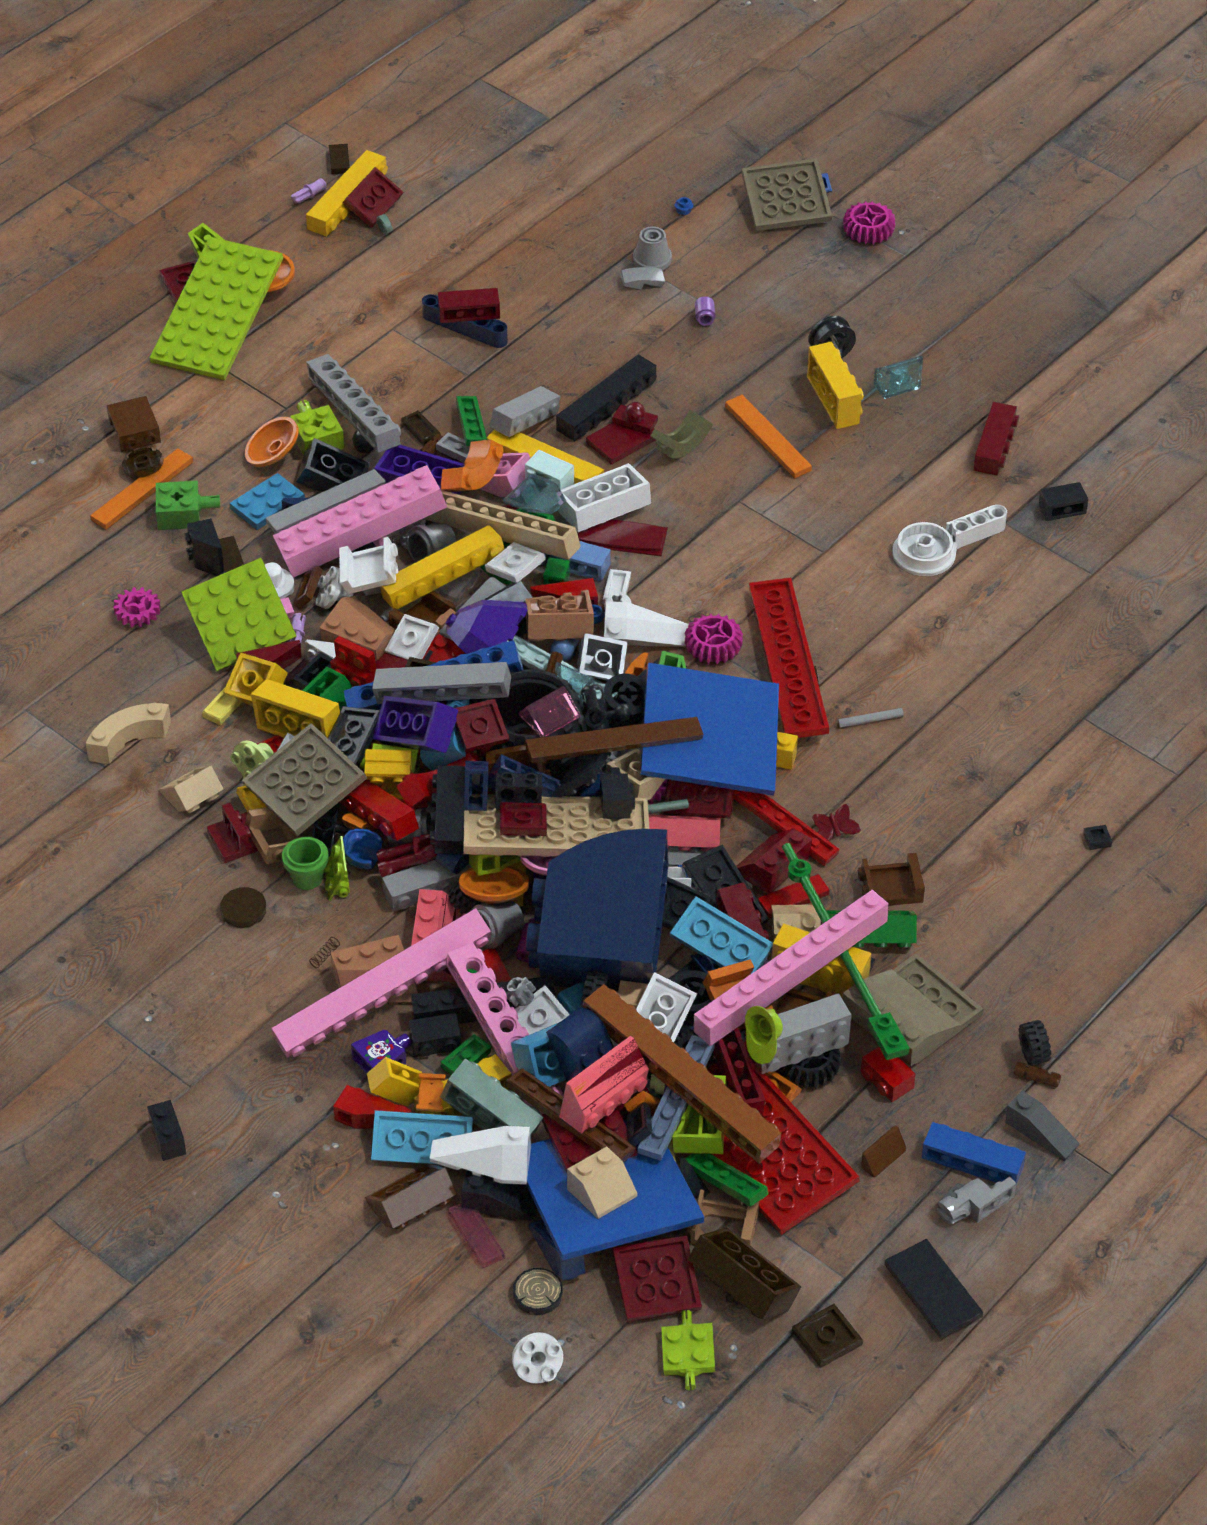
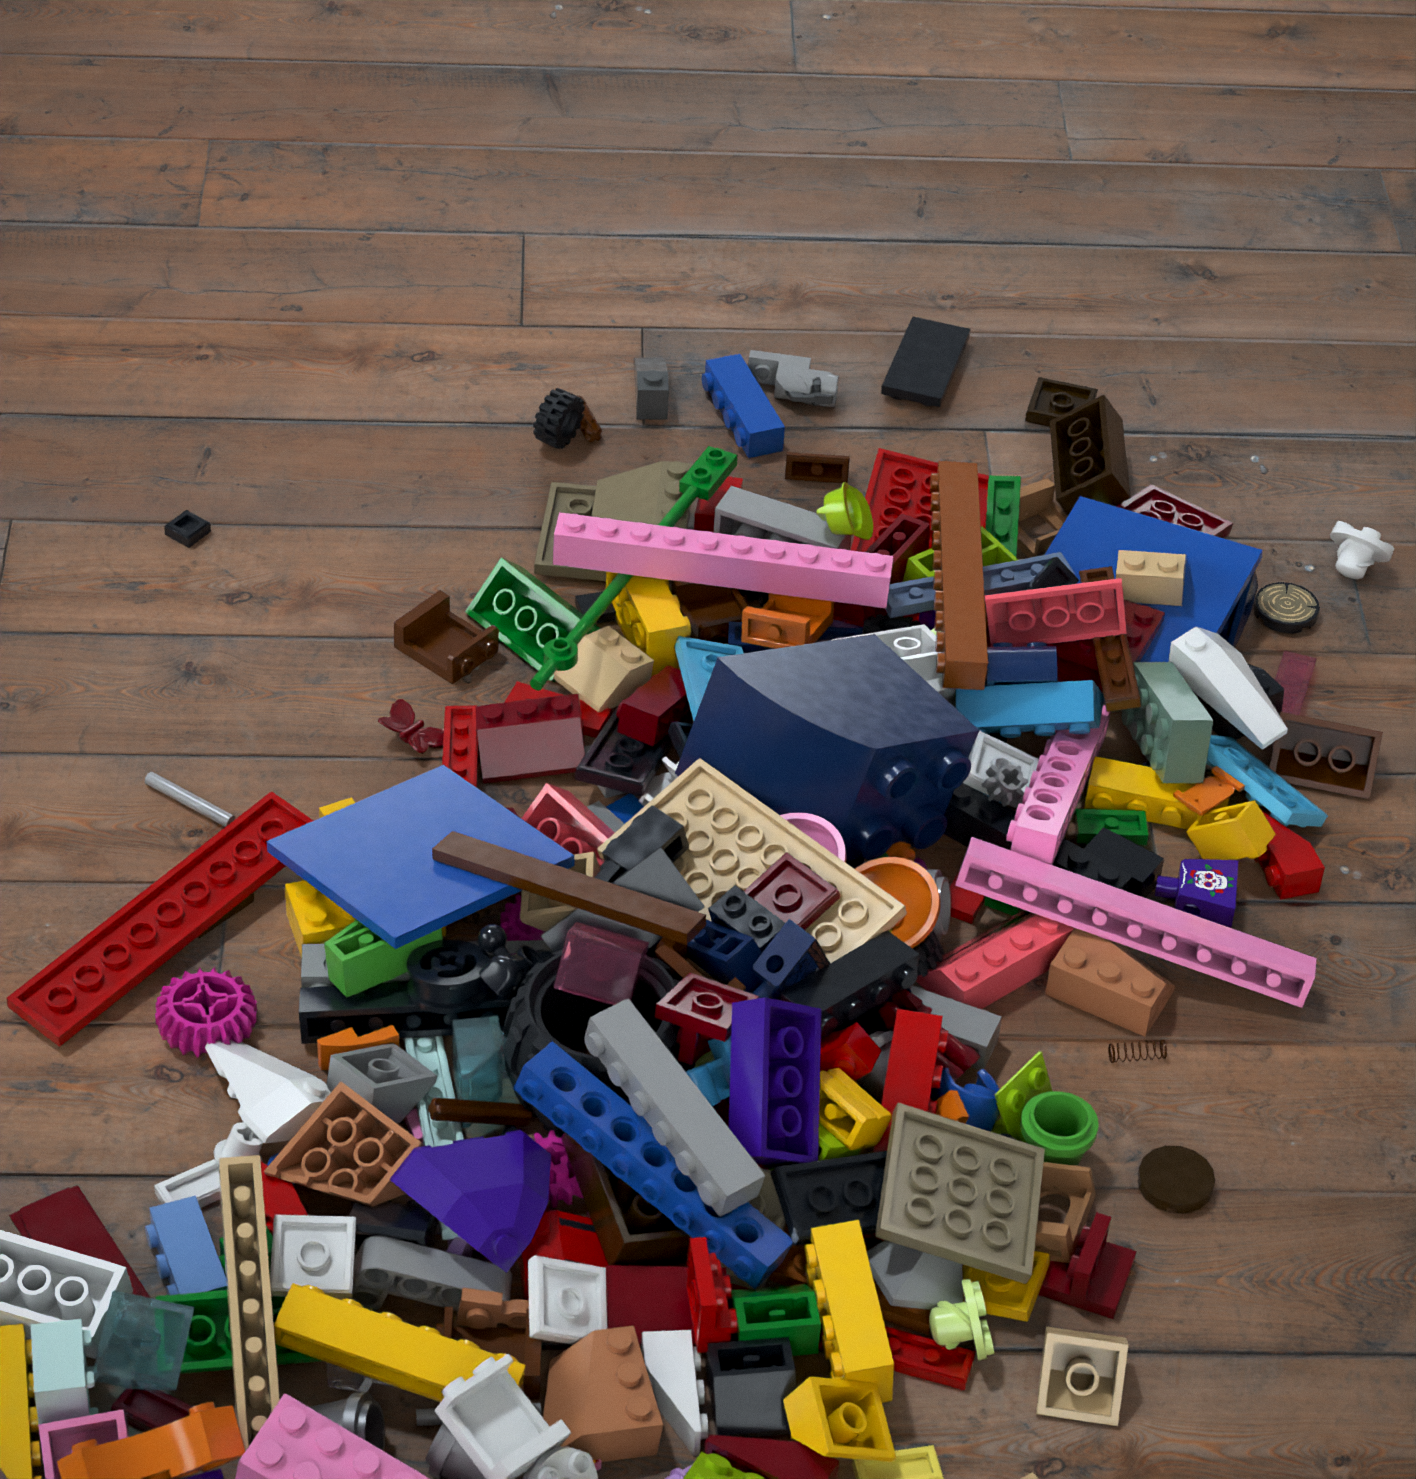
camera: 135 degrees left, 5 degrees down
(688, 1349) = (1202, 475): lime plate -> none

